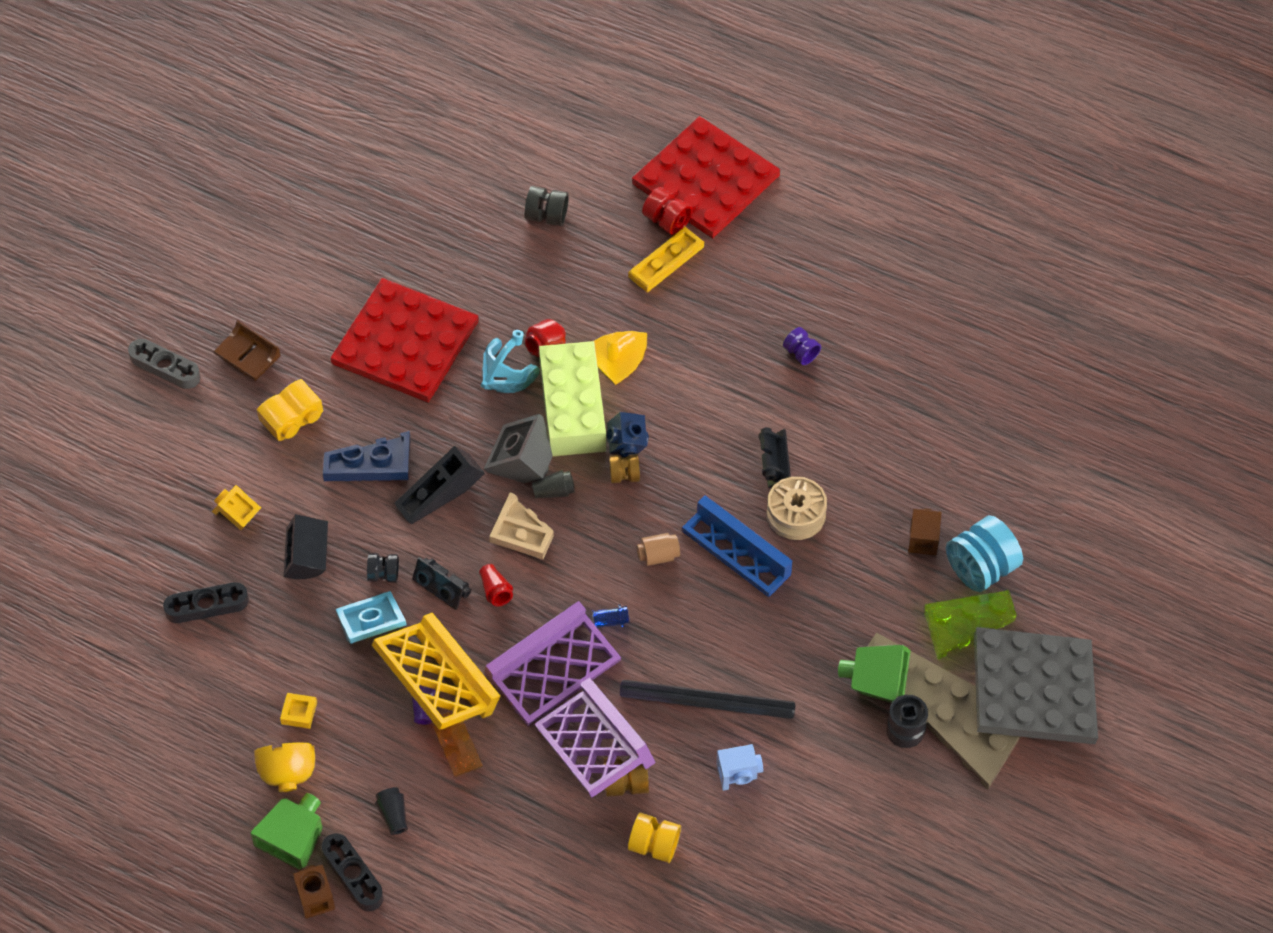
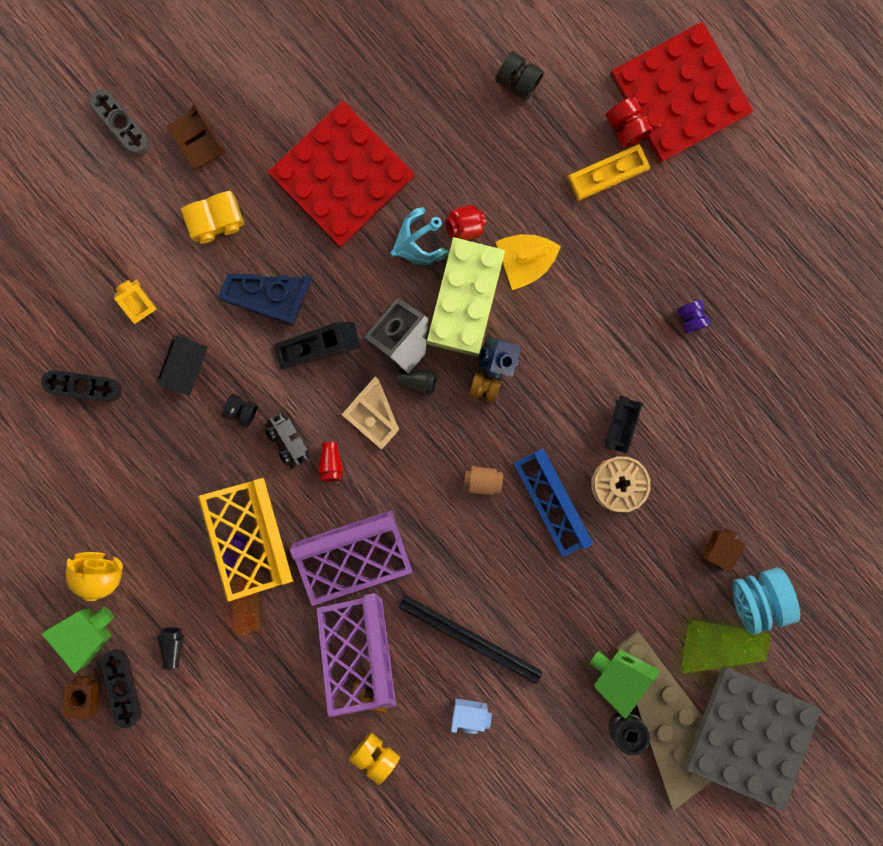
camera: 25 degrees right, 30 degrees up
(298, 710) = (124, 523): yellow plate -> none
(370, 617) = (213, 457): medium azure slope -> none
(611, 616) = (418, 530): clear blue pin -> none

